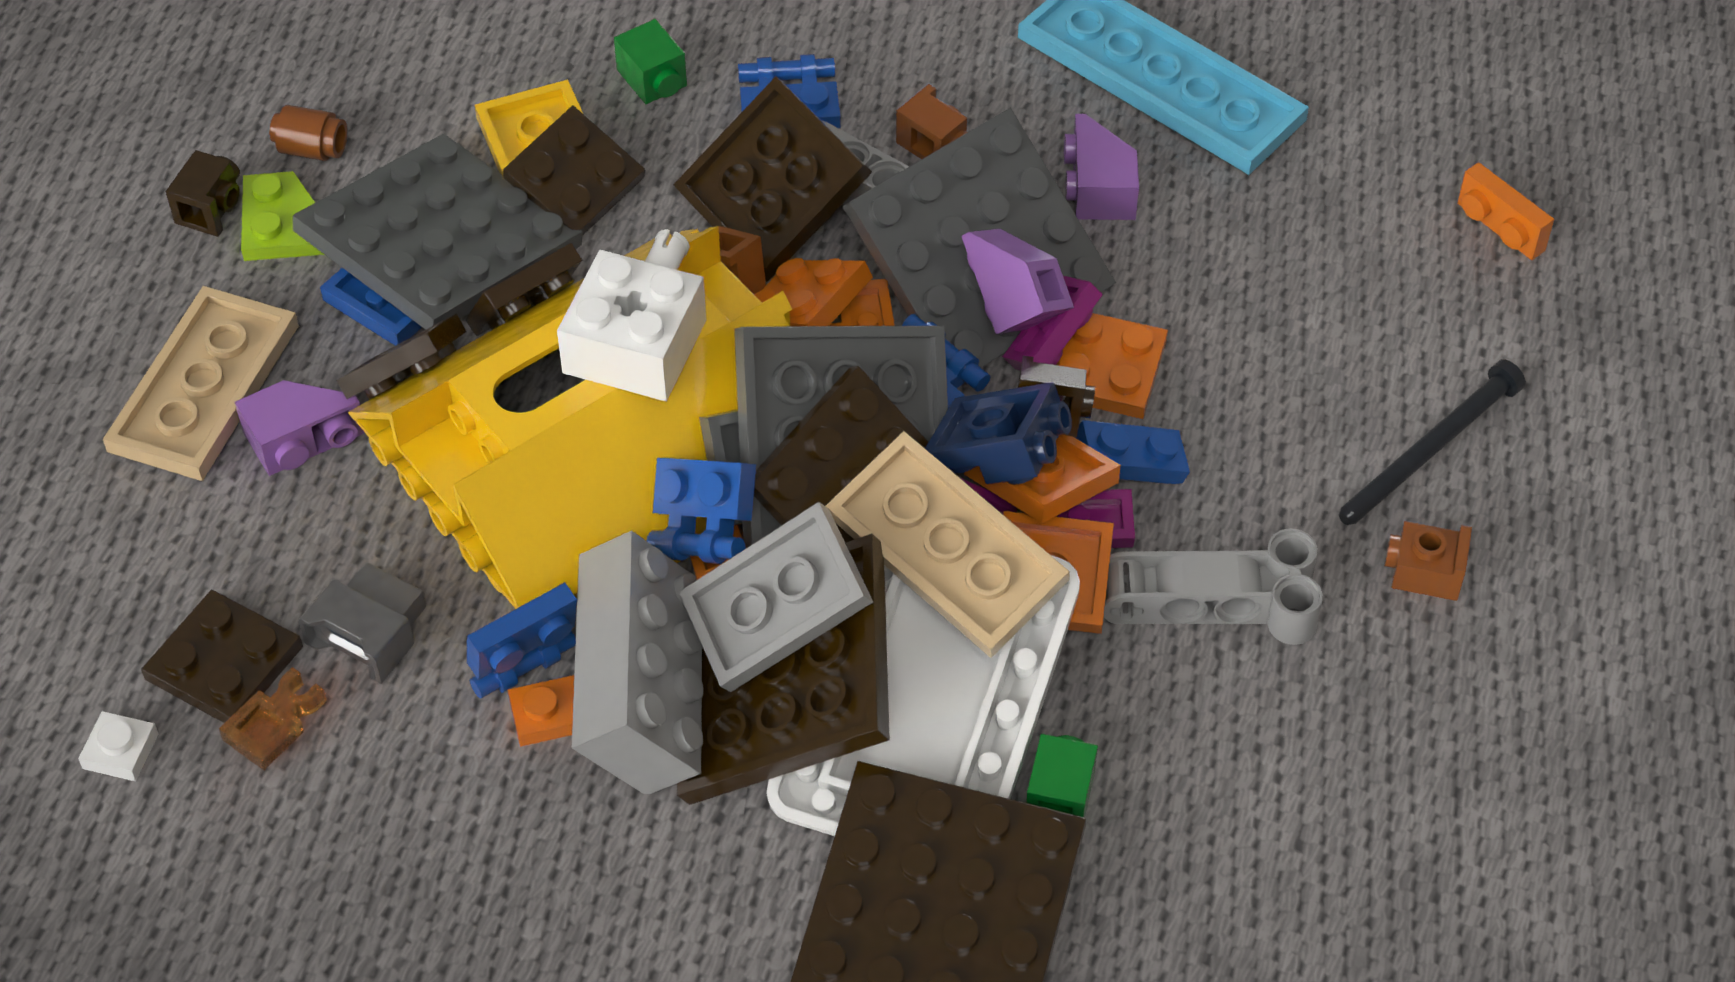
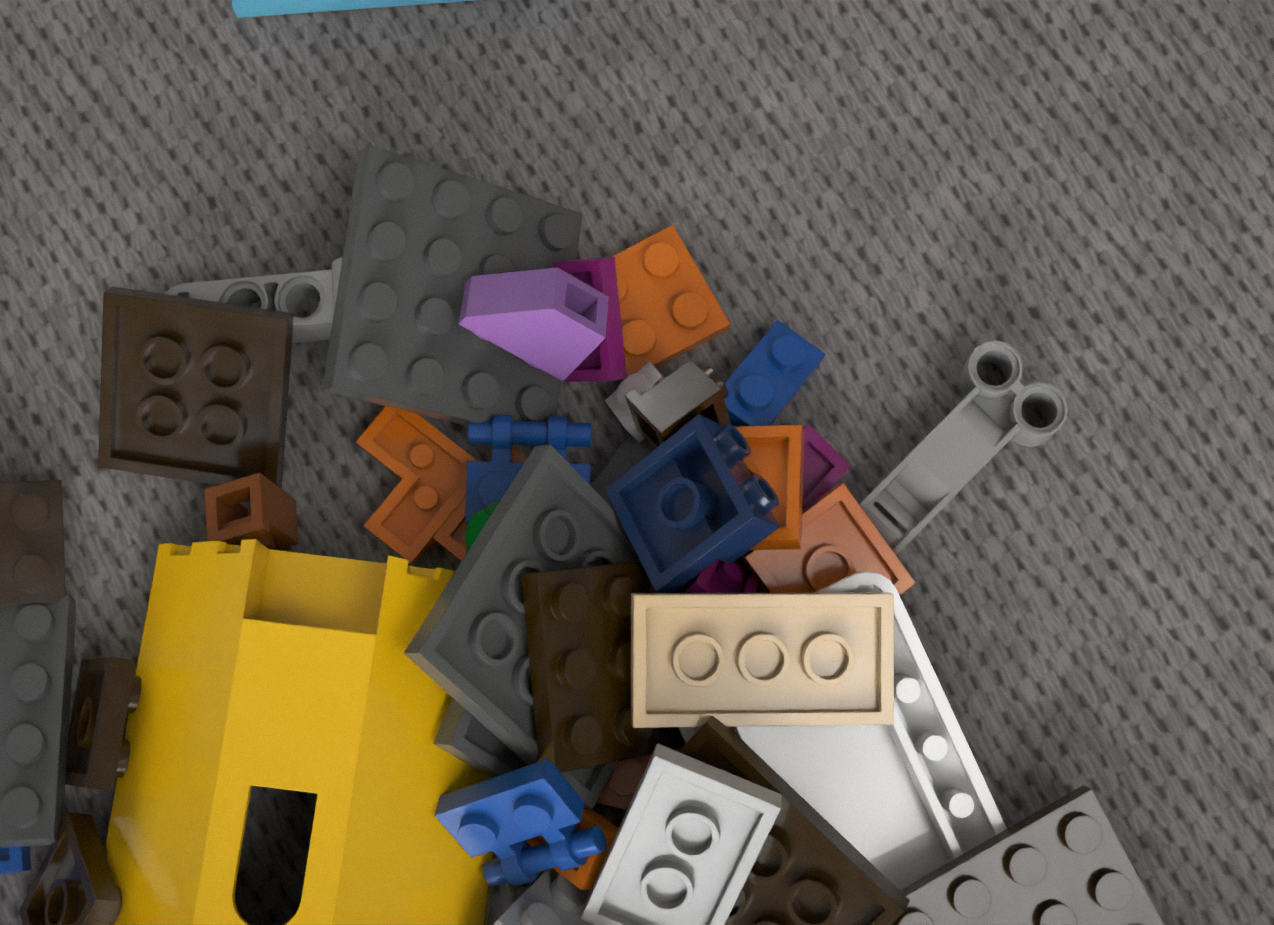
camera: 45 degrees left, 25 degrees up
(634, 320) = (270, 723): white brick -> none
(817, 96) = (124, 260): blue plate -> none
(817, 288) = (349, 488): orange plate -> none
(927, 123) = (272, 193): dark orange brick -> none
(1062, 774) = (1017, 754): green brick -> none
(1103, 174) = (463, 105): medium lavender slope -> none
(1429, 559) = (1107, 252): dark orange brick -> none
(1503, 379) = (977, 26): black bar -> none

